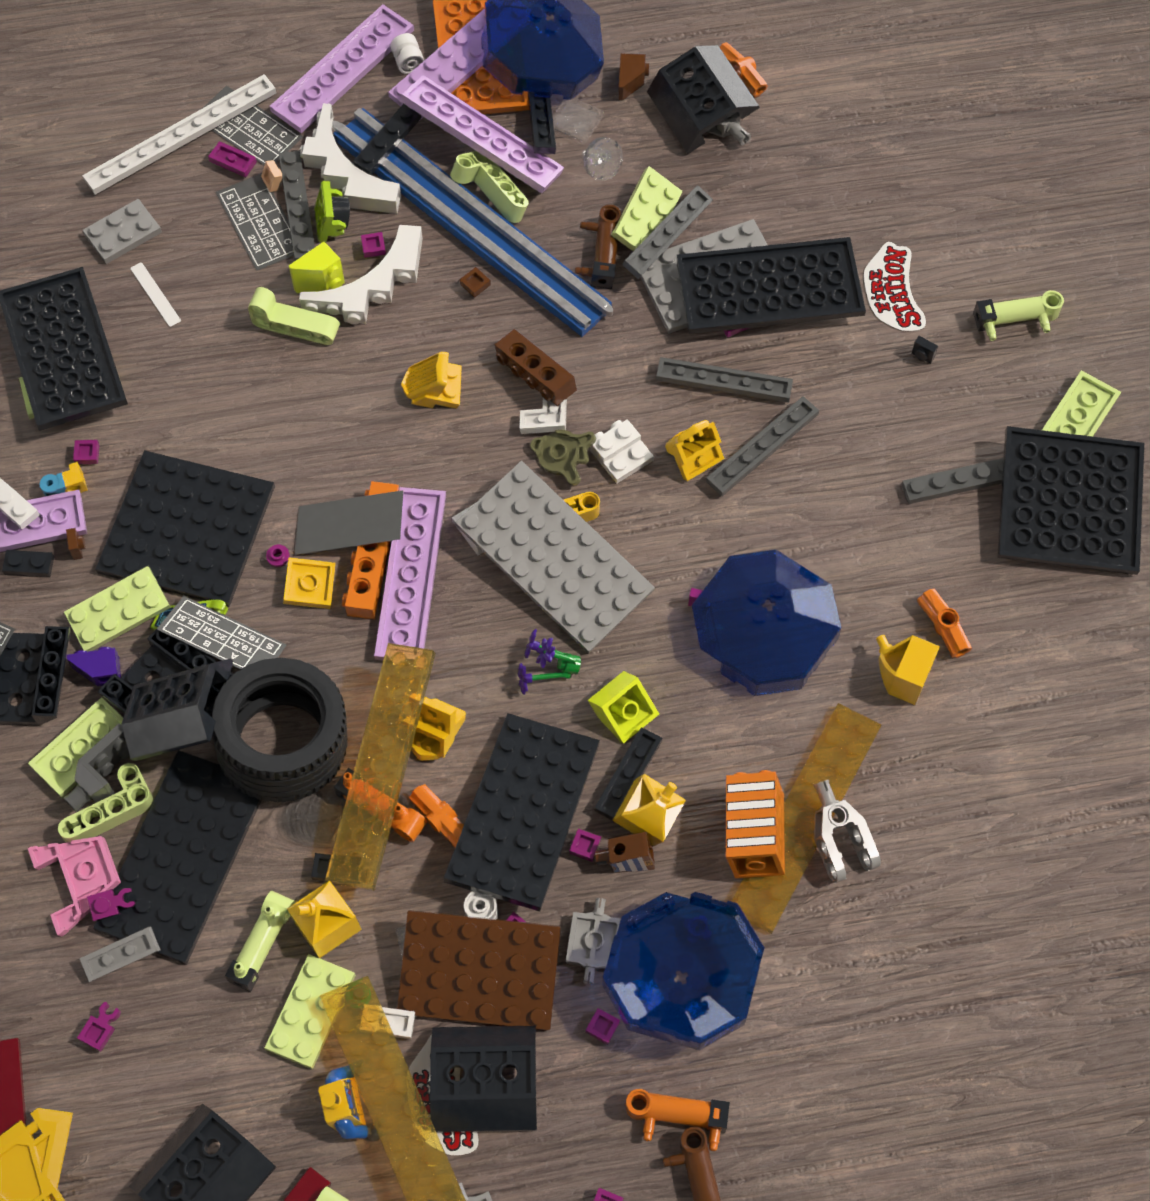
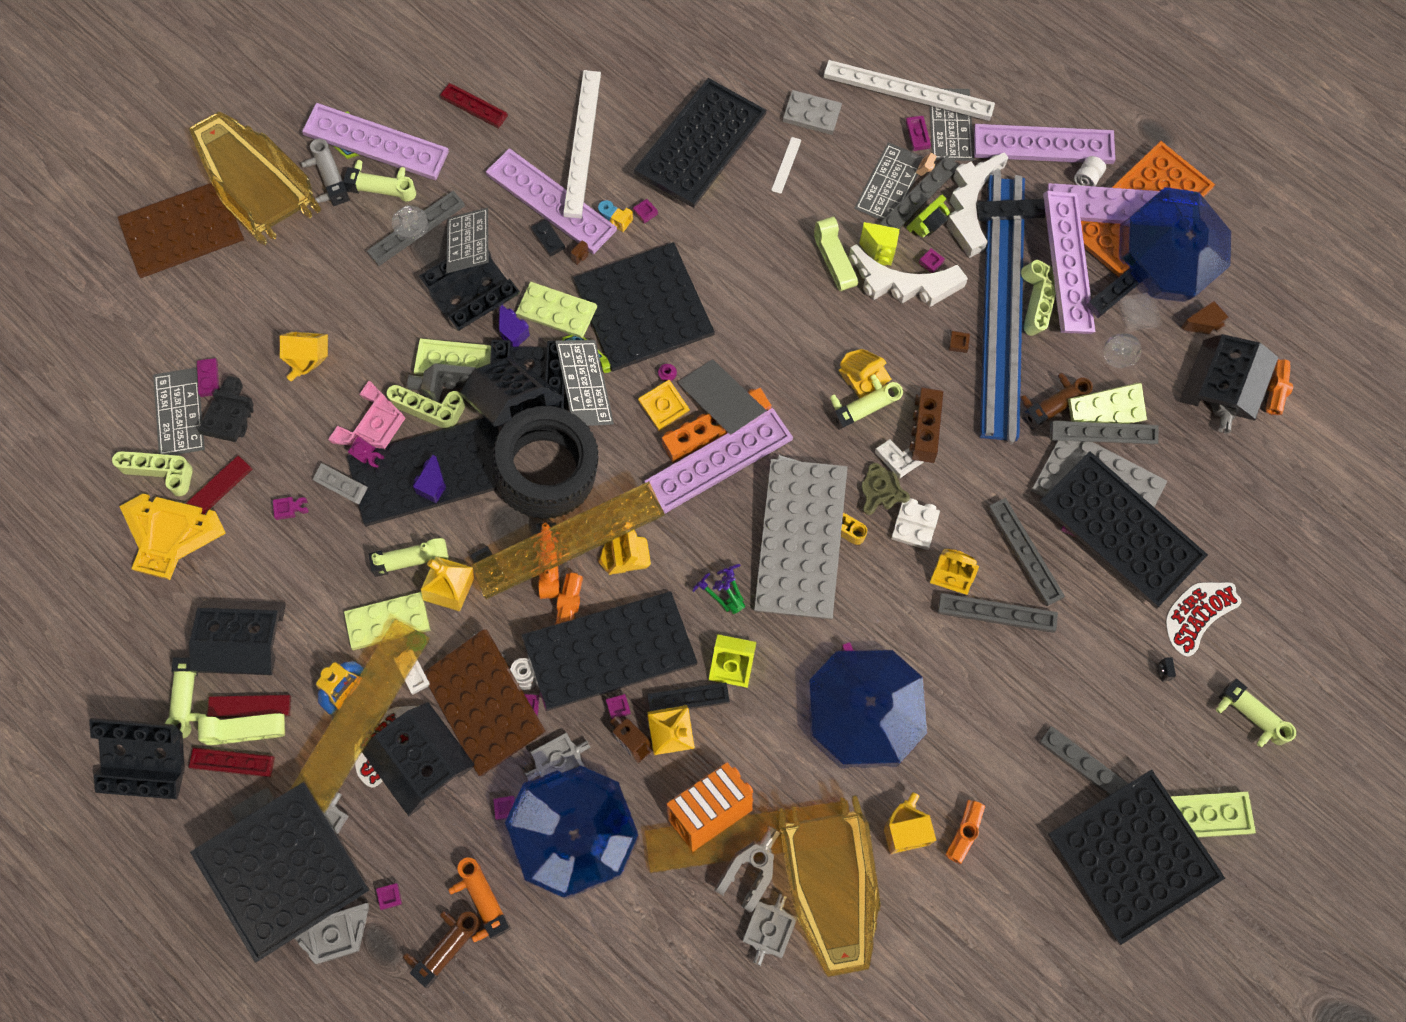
camera: 50 degrees right, 5 degrees up
(201, 857) = (430, 482): none -> dark purple slope
(465, 426) = (866, 405): none -> yellowish green piece
(908, 768) = (833, 885): none -> clear yellow windscreen
(909, 860) = (769, 929): none -> light grey plate

